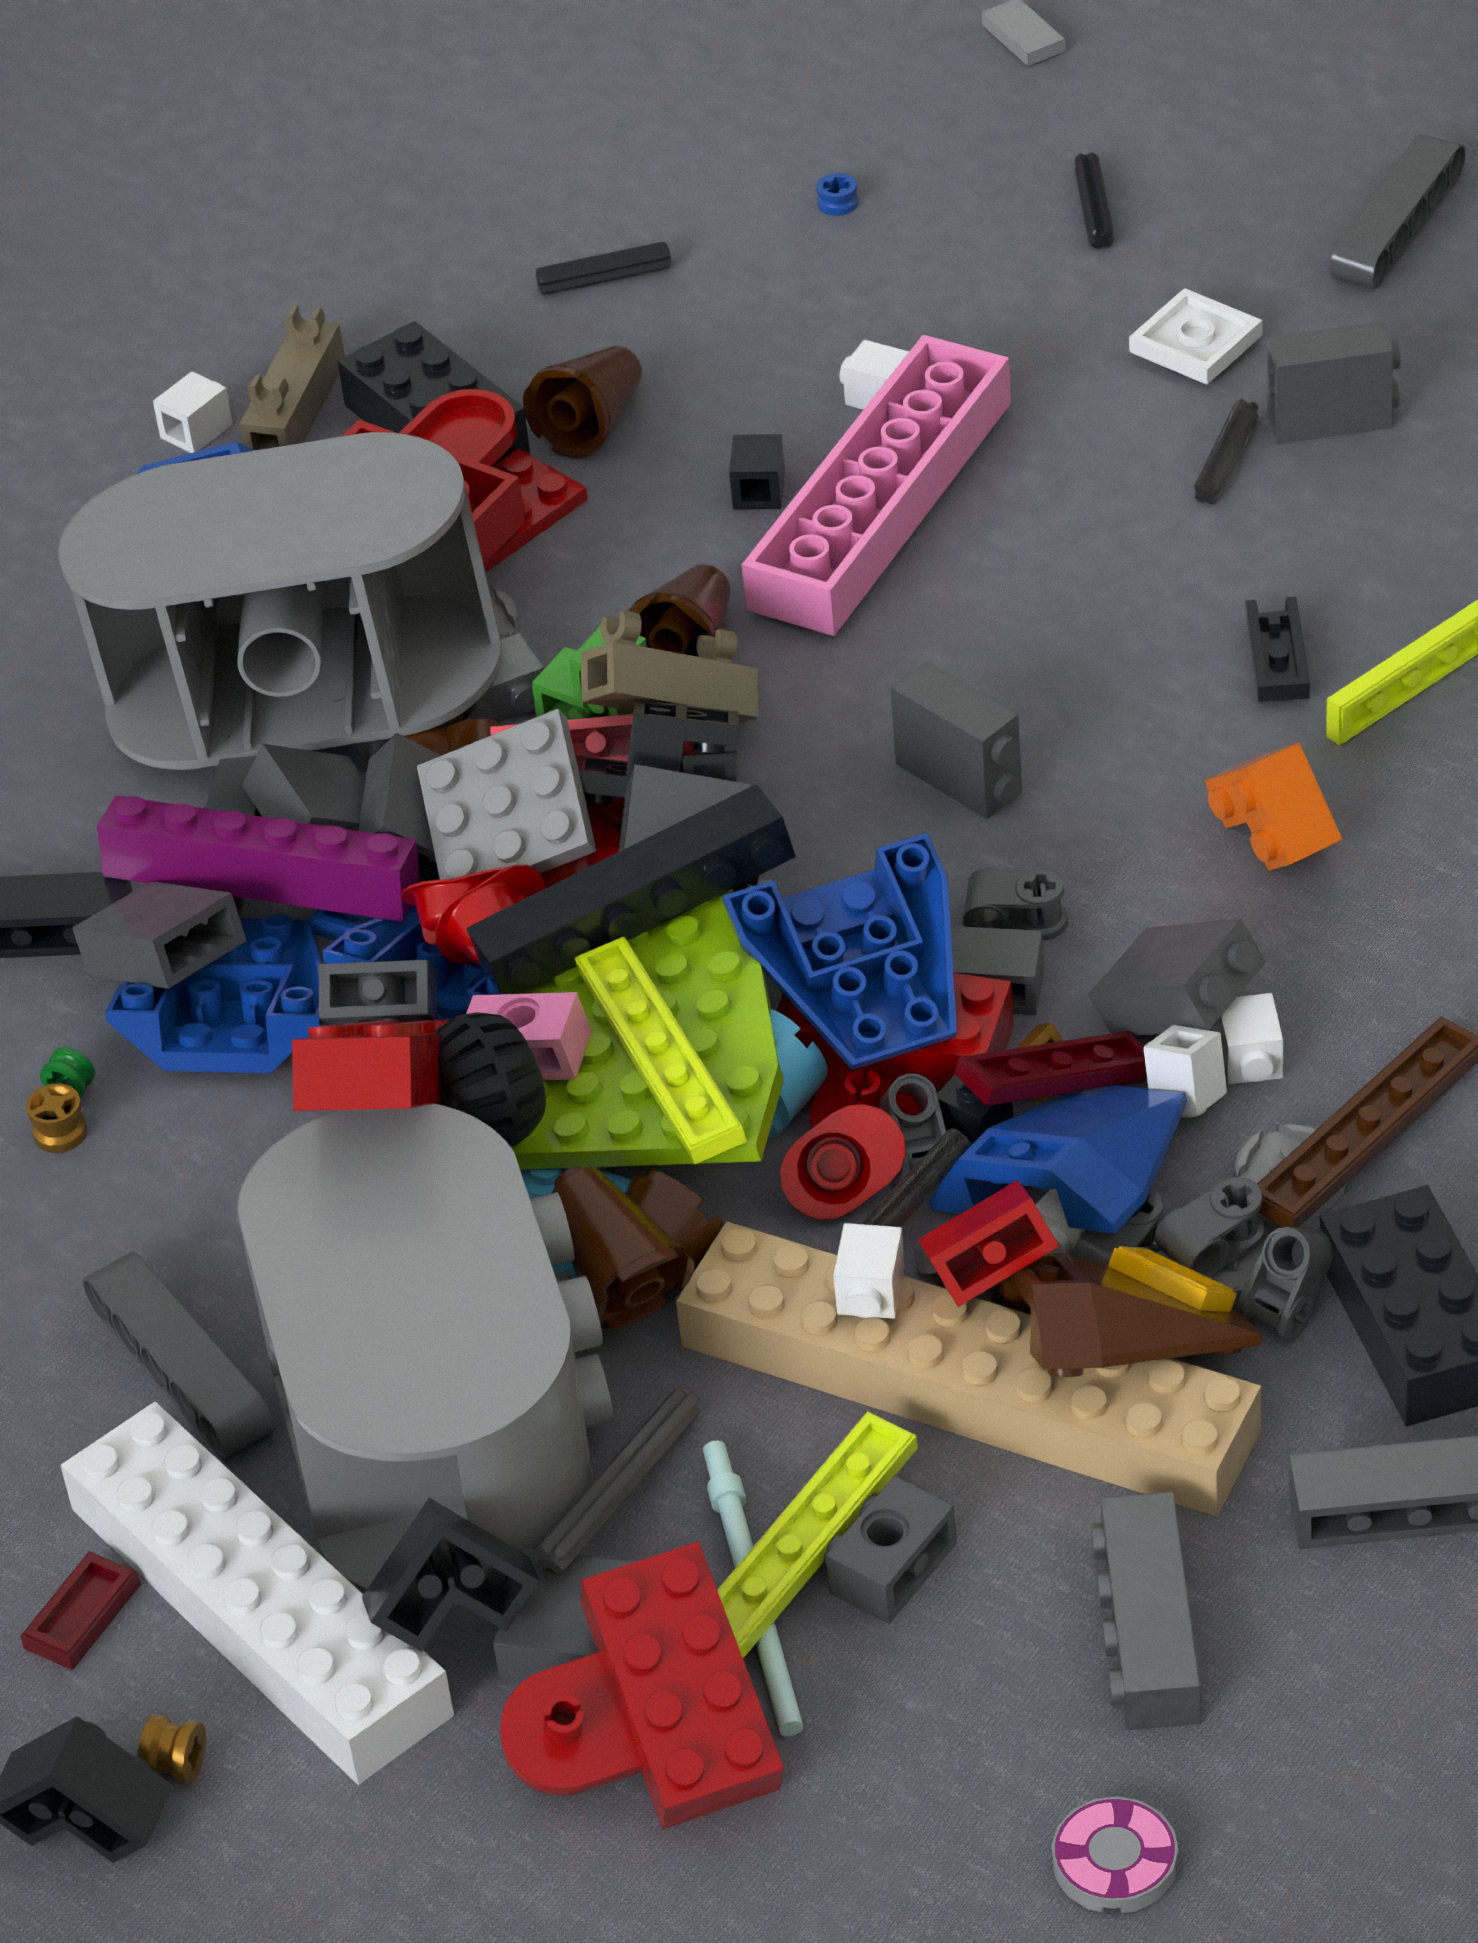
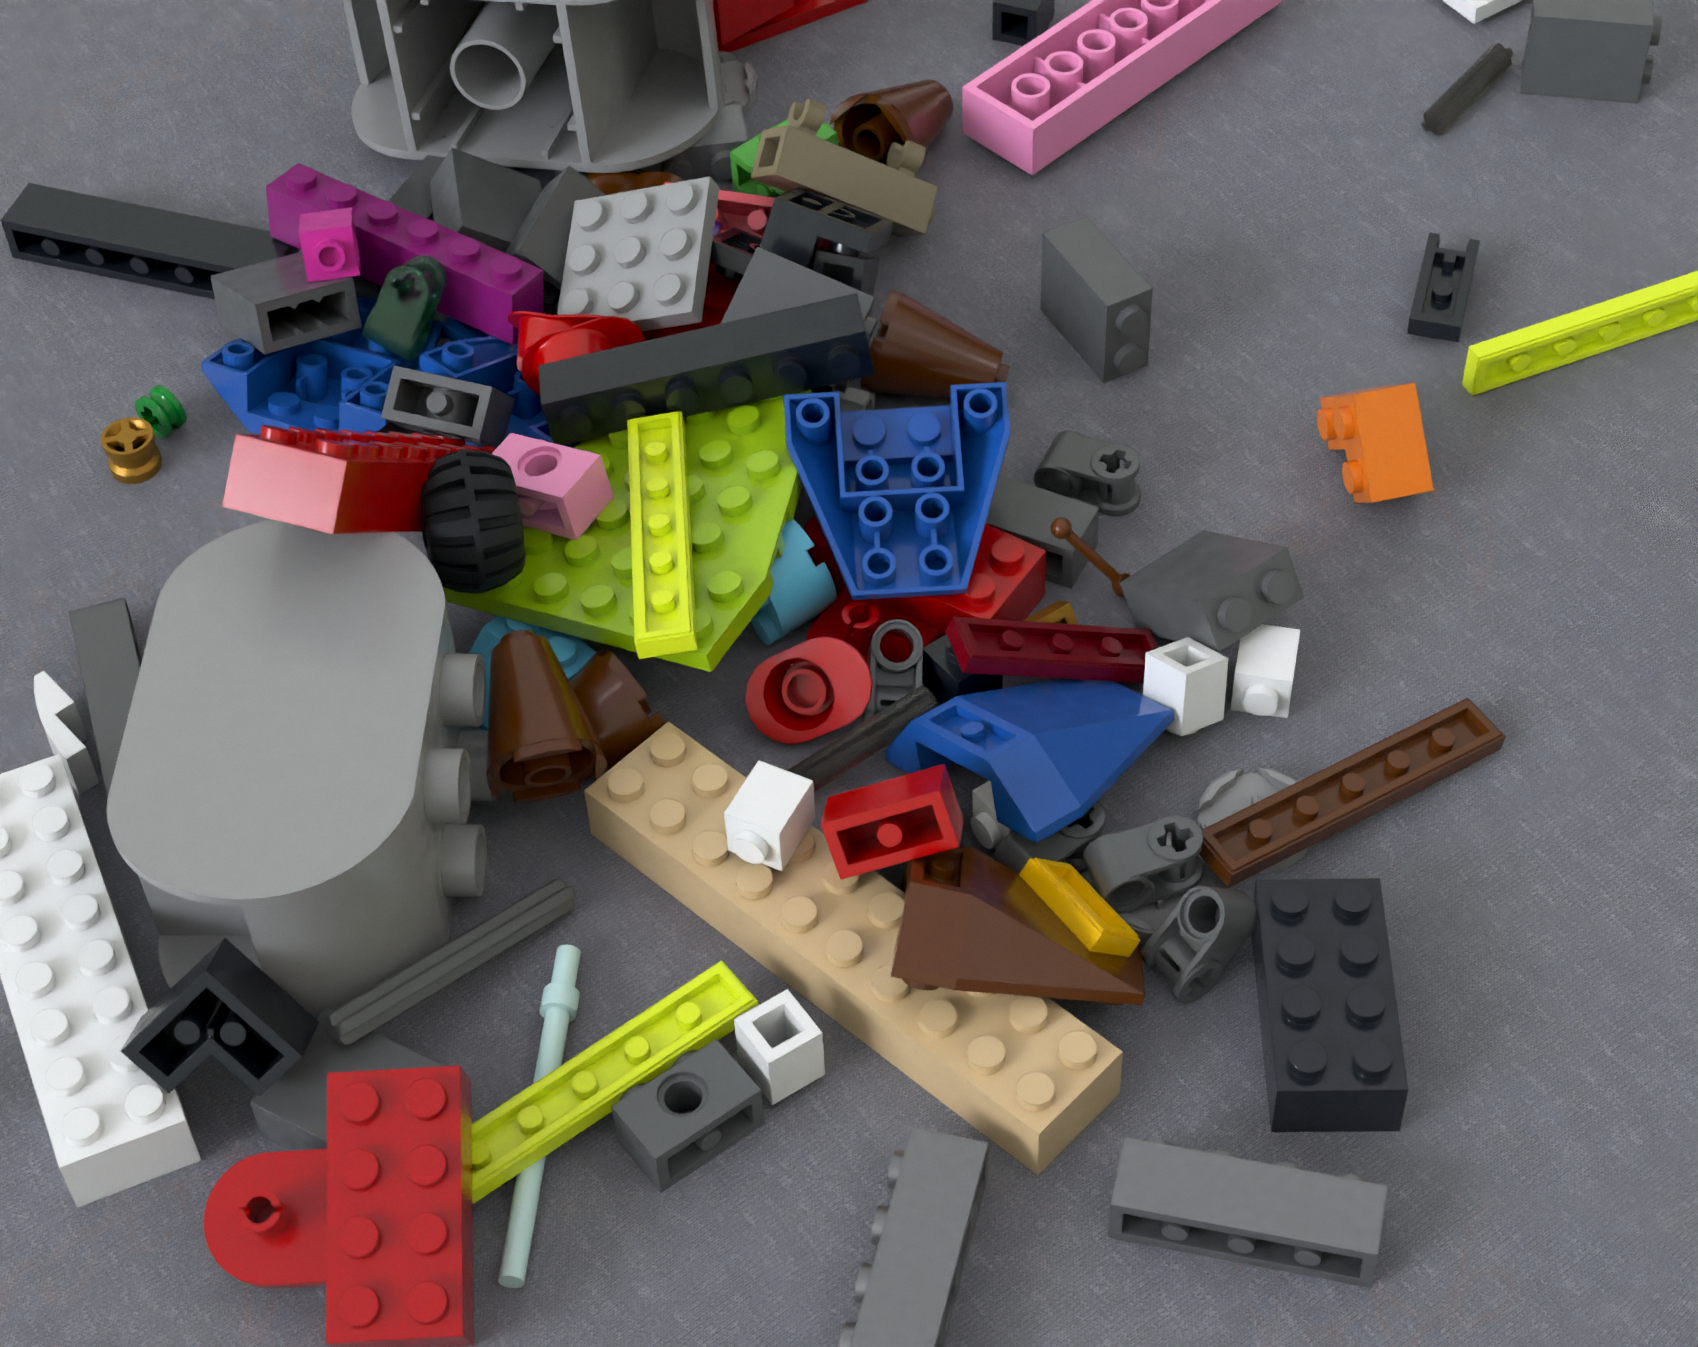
camera: 15 degrees right, 5 degrees up
(123, 1380) = (64, 731): none -> white slope
(195, 865) = (329, 244): none -> dark pink brick
(289, 915) = (404, 314): none -> clear green piece
(826, 830) = (926, 353): none -> reddish brown cone
(953, 1465) = (780, 1046): none -> white brick
(1020, 957) = (1062, 529): none -> reddish brown hinge

